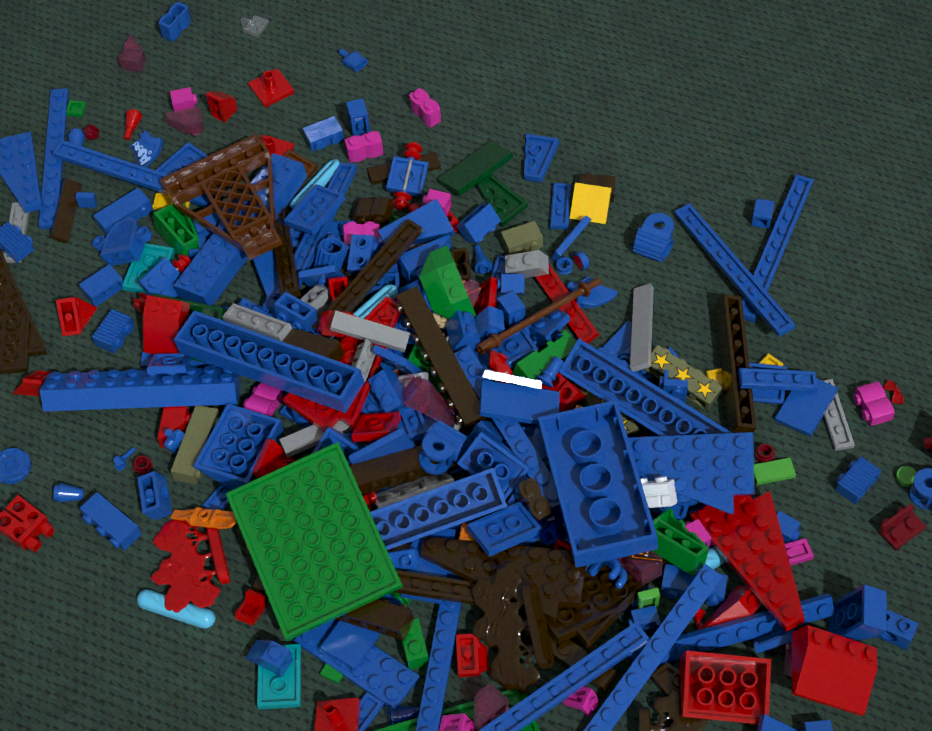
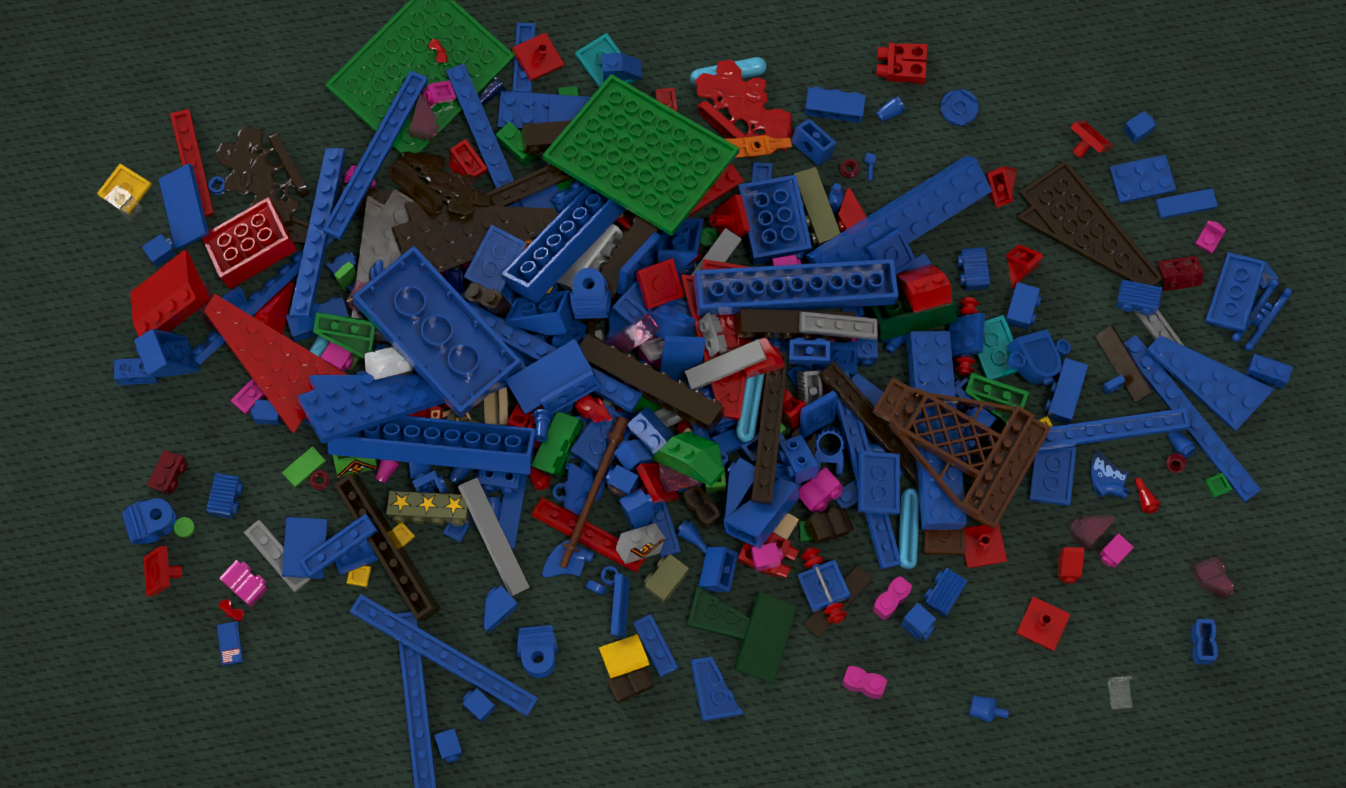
camera: 145 degrees right, 15 degrees up
(668, 283) = (497, 608): none -> blue slope
(724, 226) = (478, 705): none -> blue brick
(907, 368) = (230, 643): none -> blue tile

